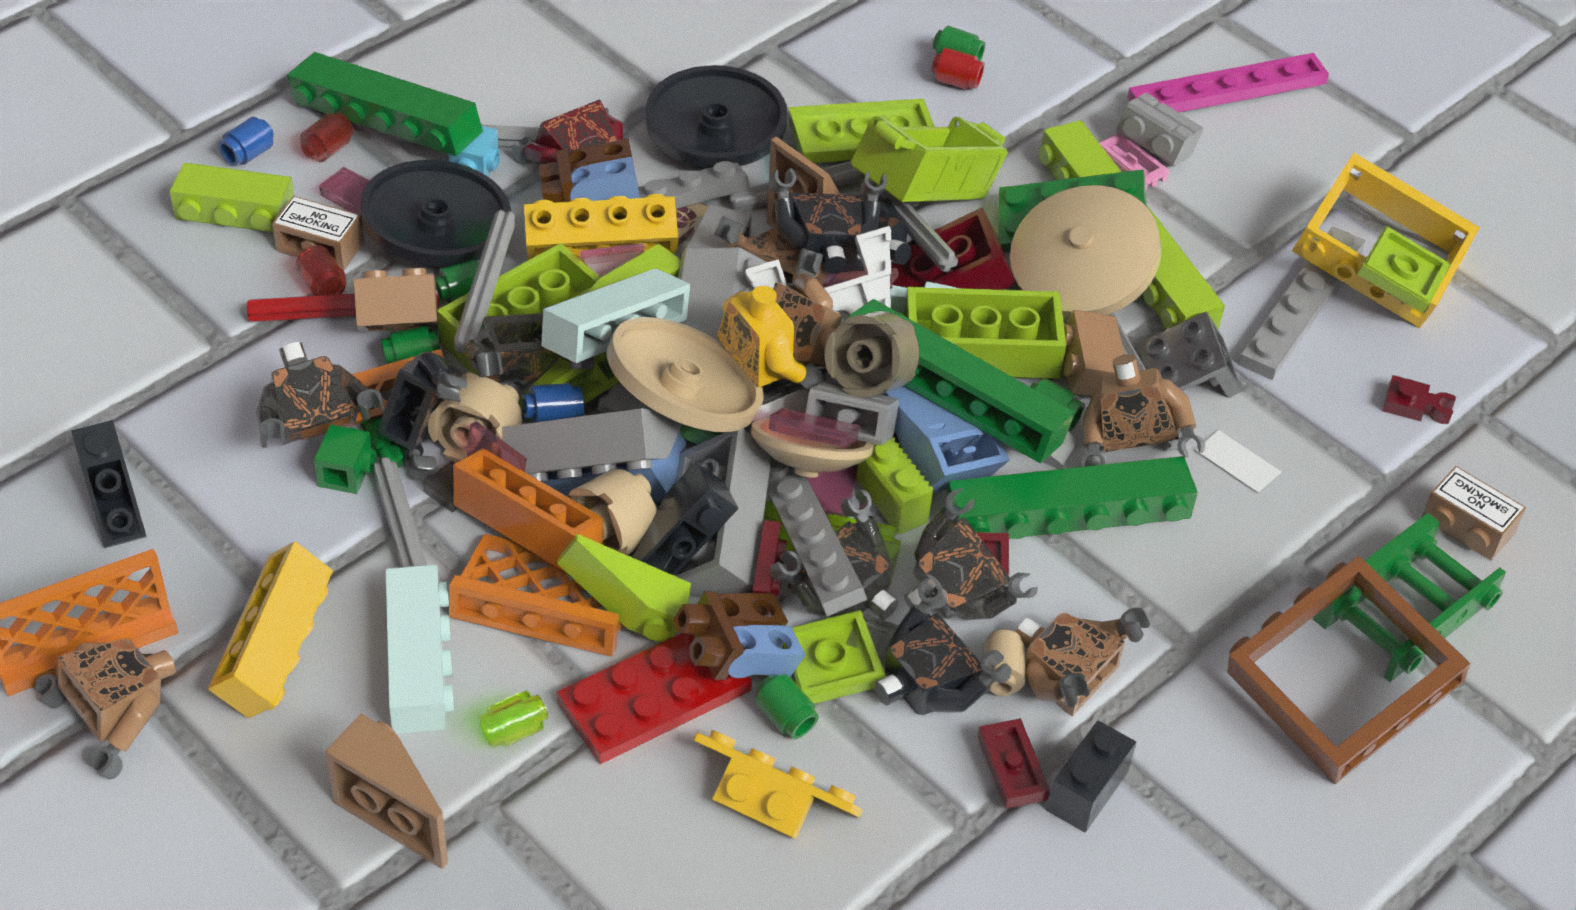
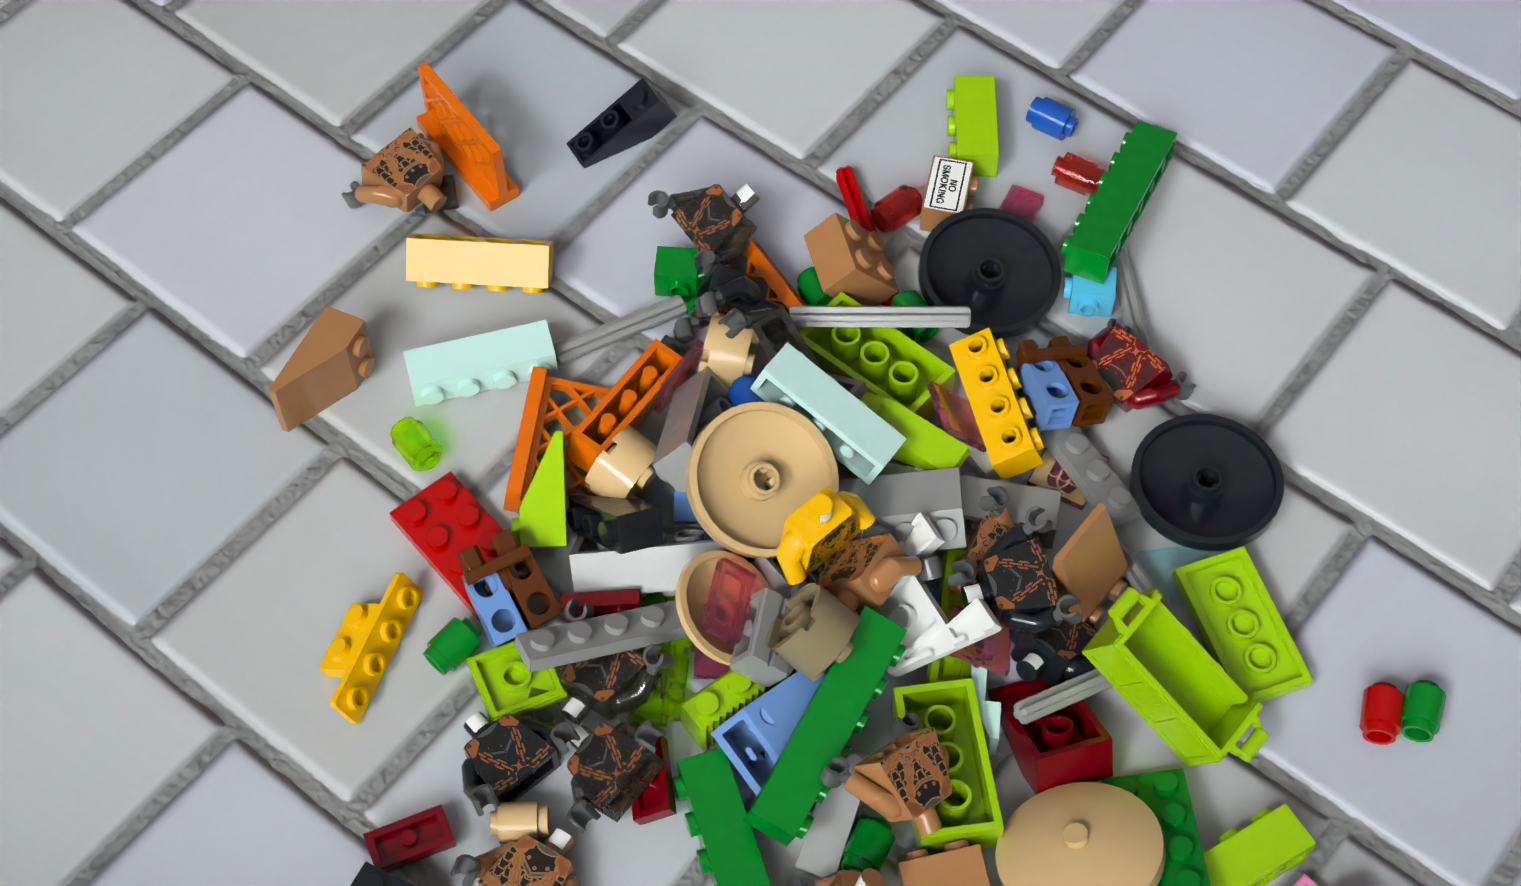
camera: 85 degrees right, 10 degrees up
(1018, 321) = (900, 778): none -> medium nougat torso

